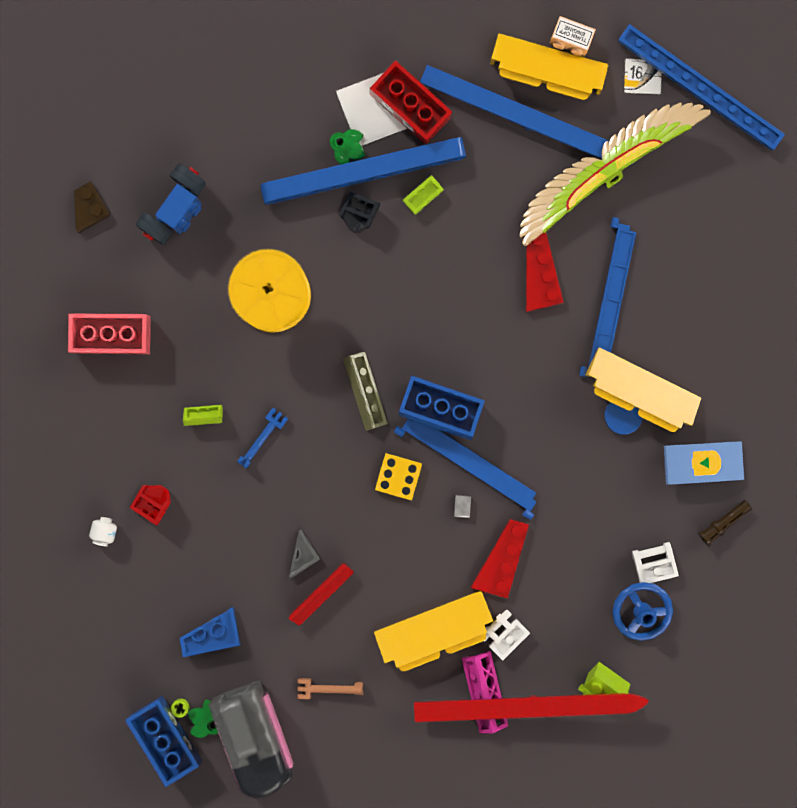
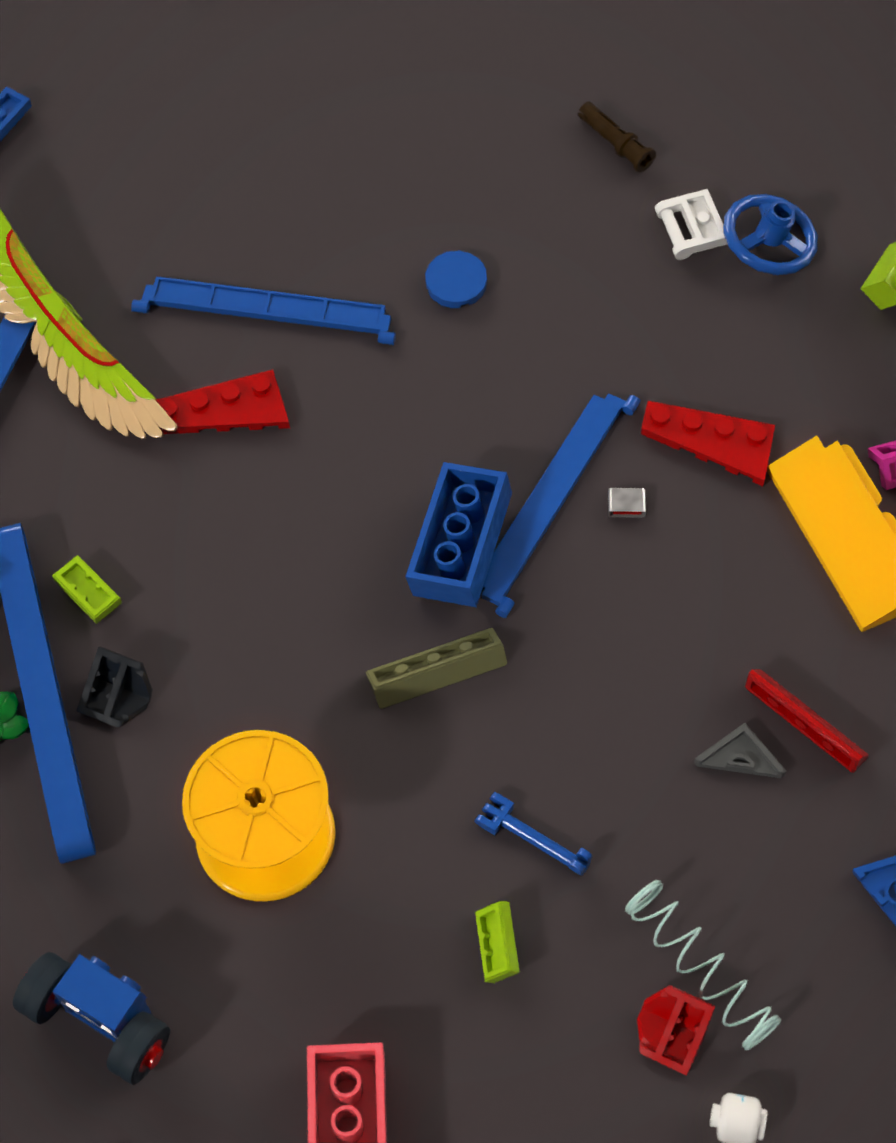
camera: 90 degrees left, 25 degrees down
(143, 544) = (763, 1028): none -> light aqua piece
(398, 476) = (584, 604): yellow tile -> none
(509, 638) = (839, 417): white plate -> none
(635, 387) = (414, 251): yellow slope -> none
(703, 462) = (524, 166): medium blue slope -> none

